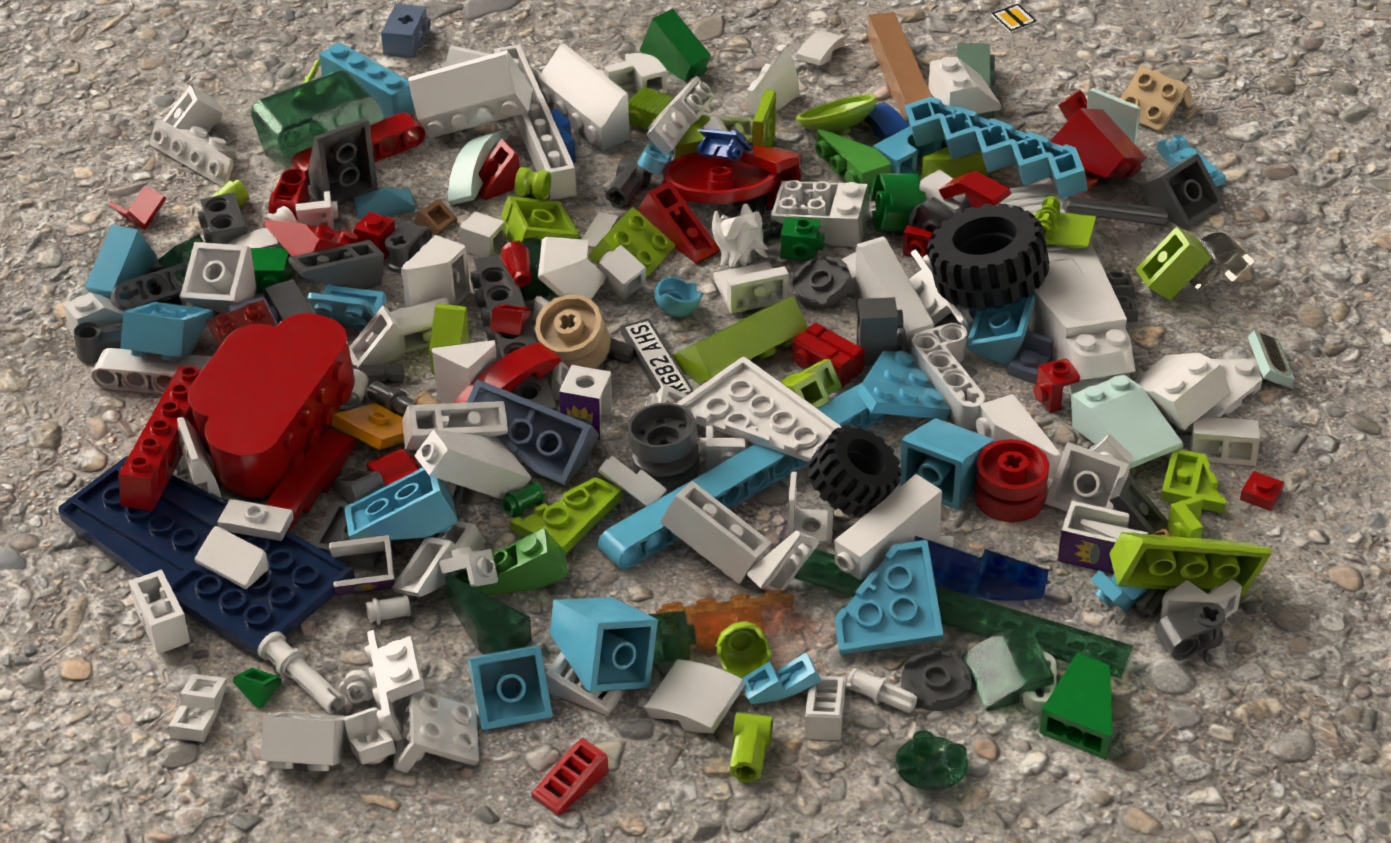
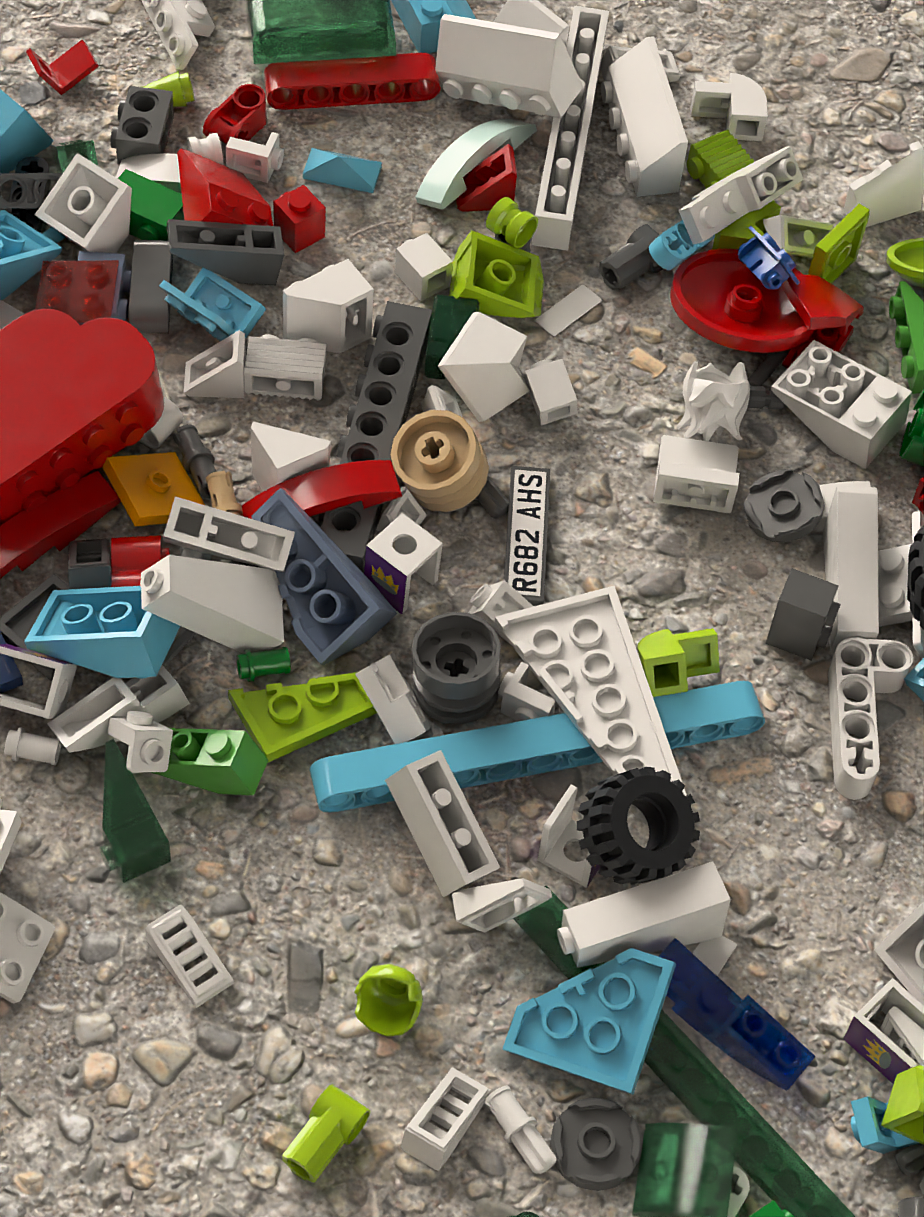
camera: 20 degrees right, 15 degrees up
(343, 163) = (311, 105): dark grey slope -> none
(381, 372) = (201, 409): dark grey axle -> none
(405, 243) = (330, 243): dark grey piece -> none
(436, 217) = (388, 216): medium nougat slope -> none
(448, 328) = (298, 401): lime slope -> none
(509, 319) = (377, 407): red slope -> none
(510, 687) = (102, 920): medium azure slope -> none
(517, 262) = (427, 333): red cone -> none
(564, 129) = (594, 161): blue slope -> none
(582, 757) = (96, 1063): red slope -> none
(605, 642) = (233, 916): medium azure slope -> none
(638, 238) = (593, 355): lime bracket -> none
(673, 637) = (310, 920): clear green brick -> none
(675, 46) = (800, 84): green slope -> none
(676, 220) = (658, 346): red slope -> none
(677, 297) = (598, 453): medium azure hair -> none
(695, 696) = (303, 1033): white slope -> none
(713, 617) = (385, 939): clear orange bracket -> none
(748, 338) = (638, 552): lime slope -> none
(771, 685) = (403, 1060): medium azure slope -> none
(801, 239) = (791, 434): green brick -> none
(823, 344) = (730, 609): red brick -> none
(901, 388) = (786, 708): medium azure plate -> none
(944, 457) = (781, 838): medium azure slope -> none
(1008, 419) = (891, 835): white slope -> none
(1011, 480) = (844, 905): red wheel -> none

